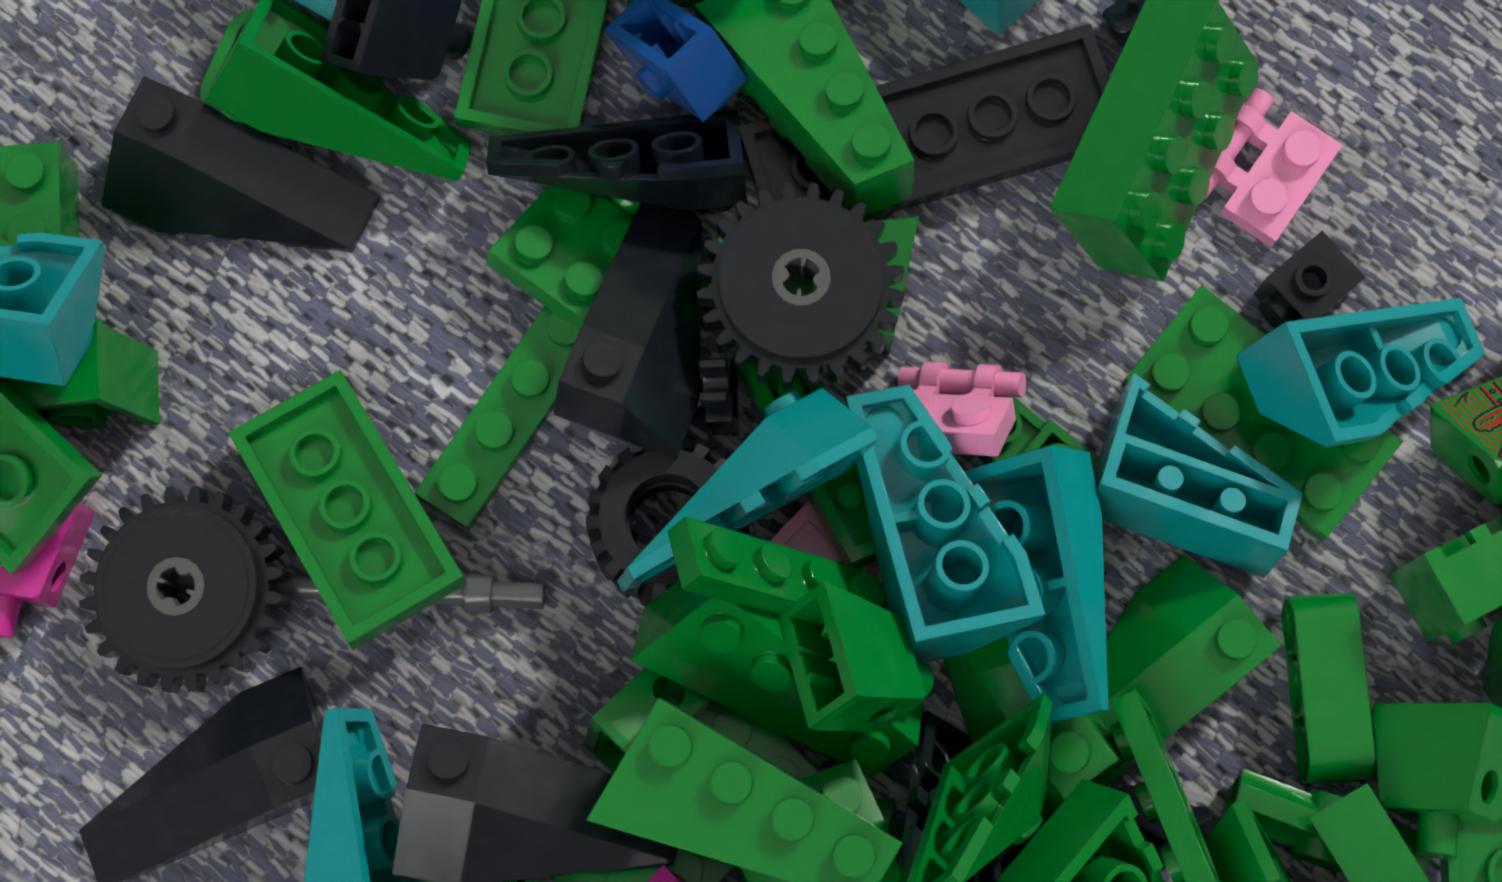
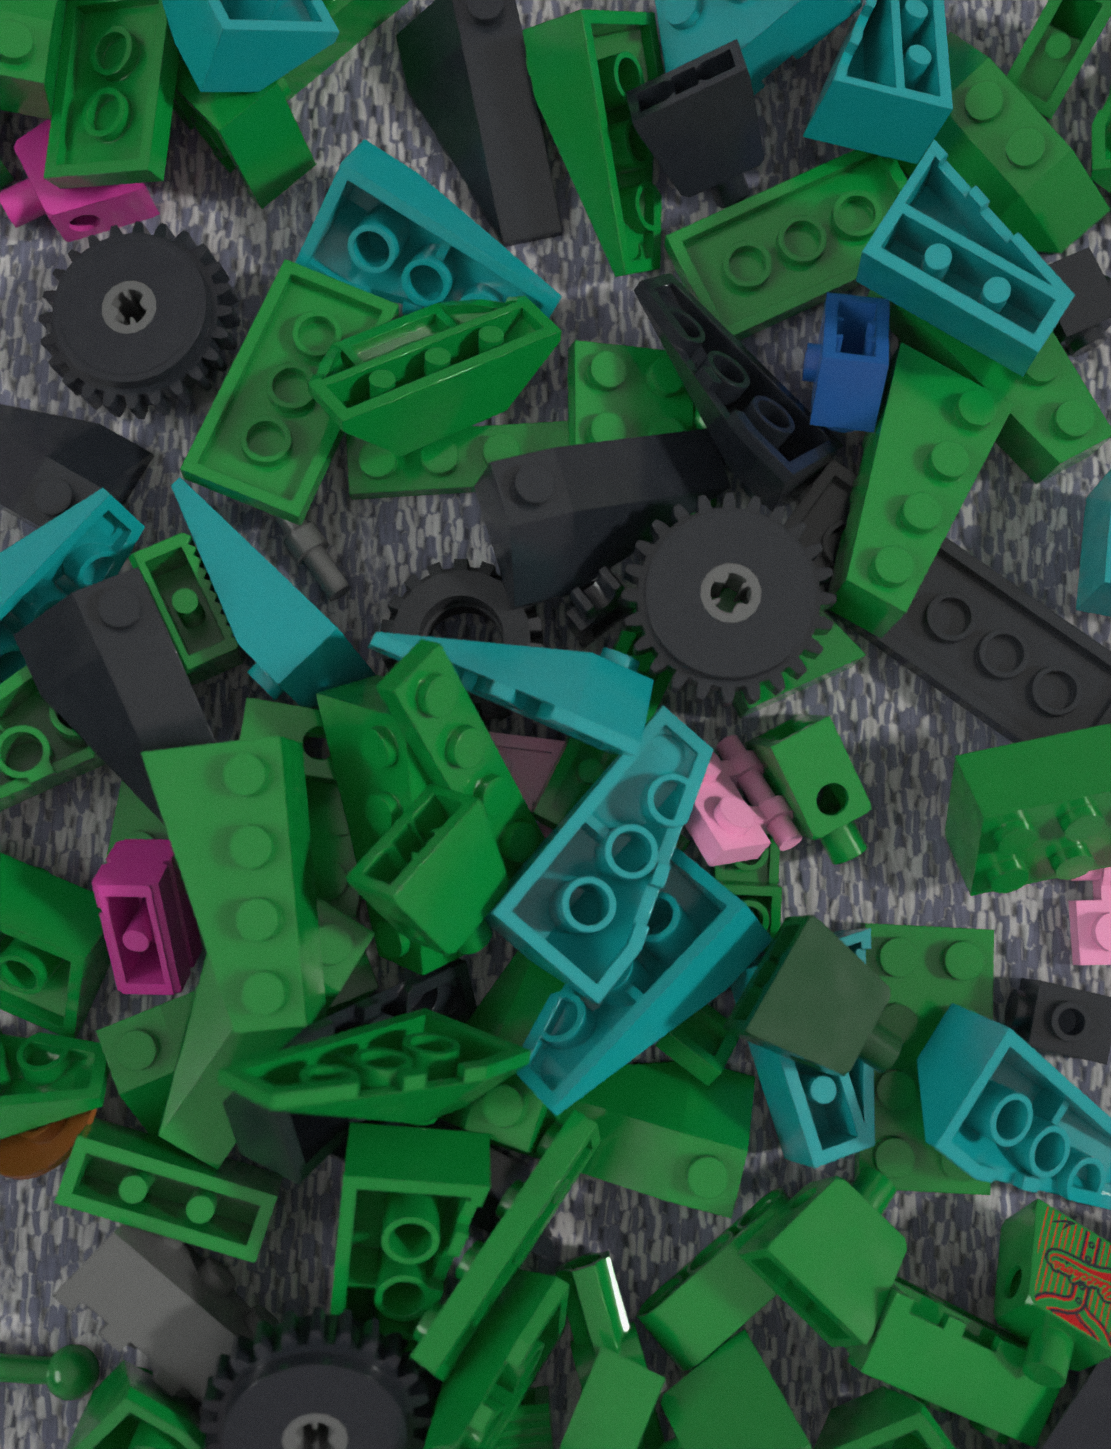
camera: 55 degrees right, 5 degrees up
(300, 320) = (409, 242): none -> teal wedge
(424, 376) = (433, 371): none -> green wedge
(464, 711) = (189, 607): none -> green brick
(553, 652) = (271, 619): none -> teal wedge
(986, 325) = (800, 761): none -> green torso
(1130, 573) = (700, 1044): none -> green plate
(1162, 452) = (816, 1003): none -> dark green torso
(1363, 588) = (832, 1255): none -> green torso

